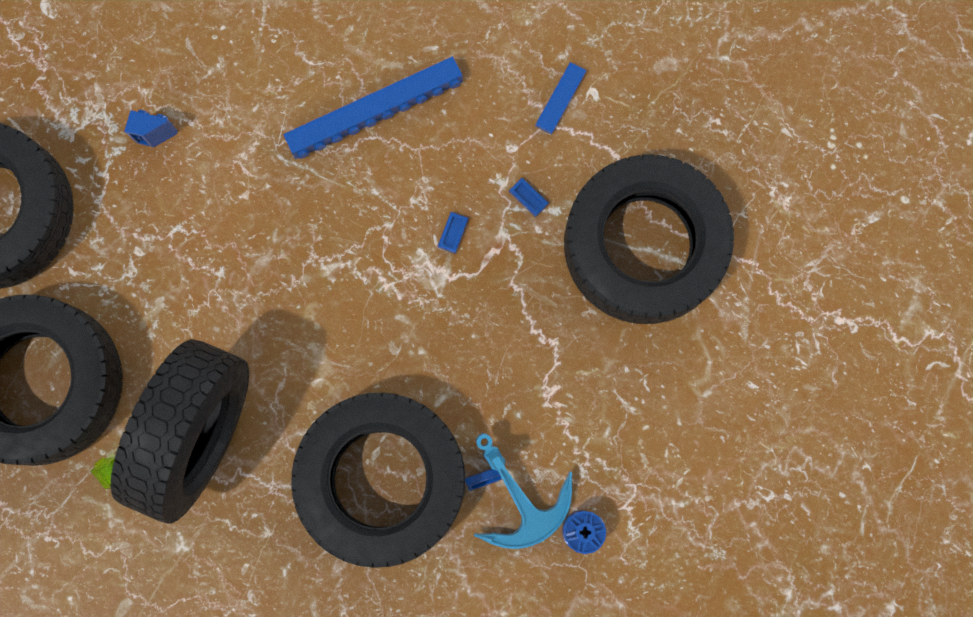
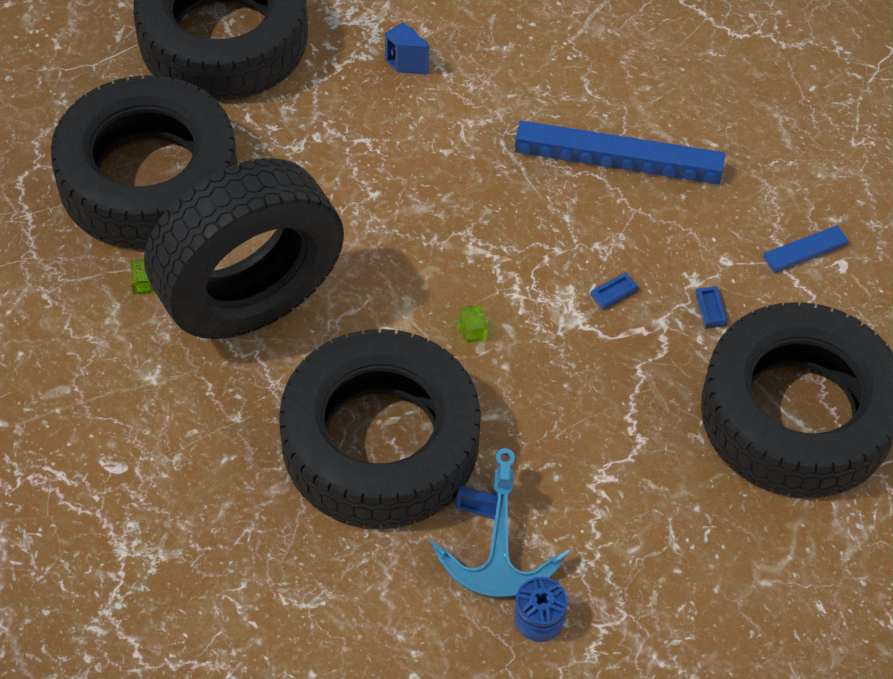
camera: 35 degrees right, 25 degrees down
(375, 336) = (472, 323): none -> clear neon green brick

